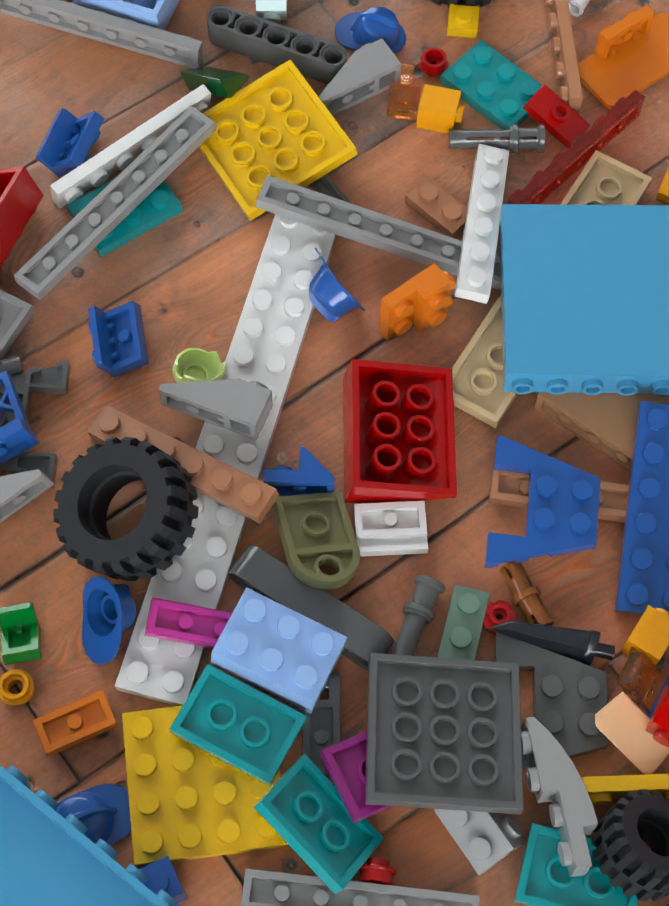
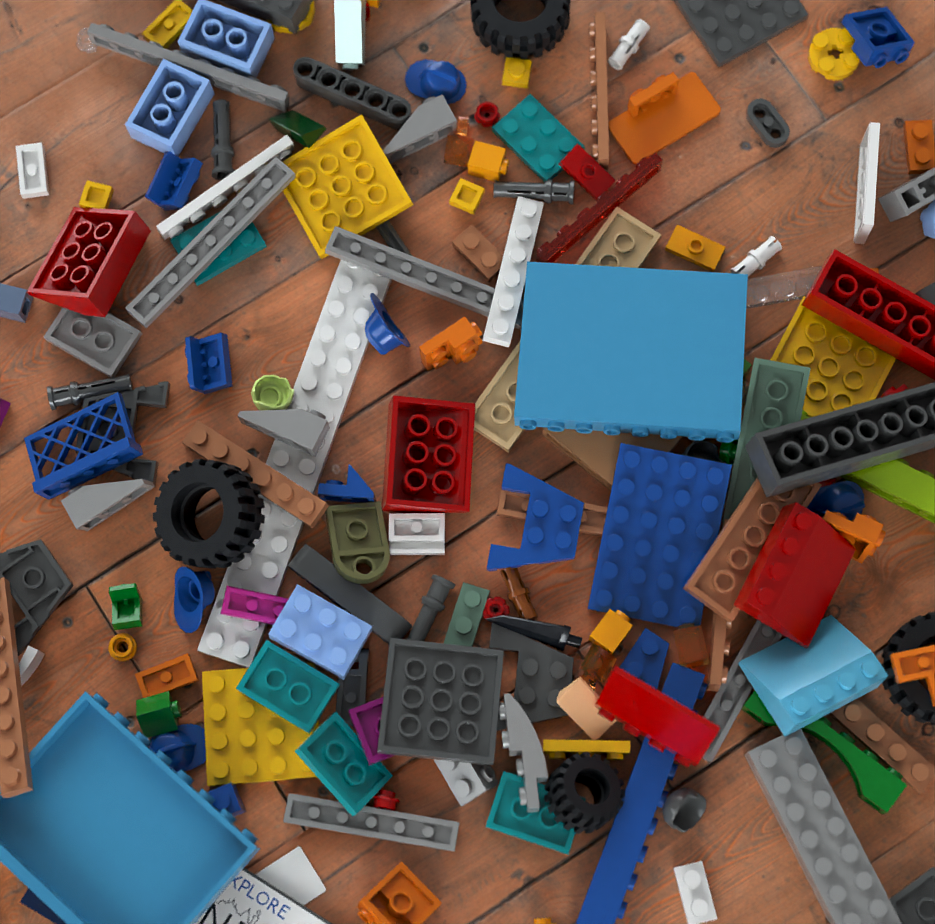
camera: 10 degrees right, 10 degrees up
(63, 63) = (169, 108): none -> light blue brick
(65, 770) = (158, 714): none -> green brick
(126, 108) = (222, 149): none -> dark grey pin
(418, 146) = (467, 196): none -> yellow plate

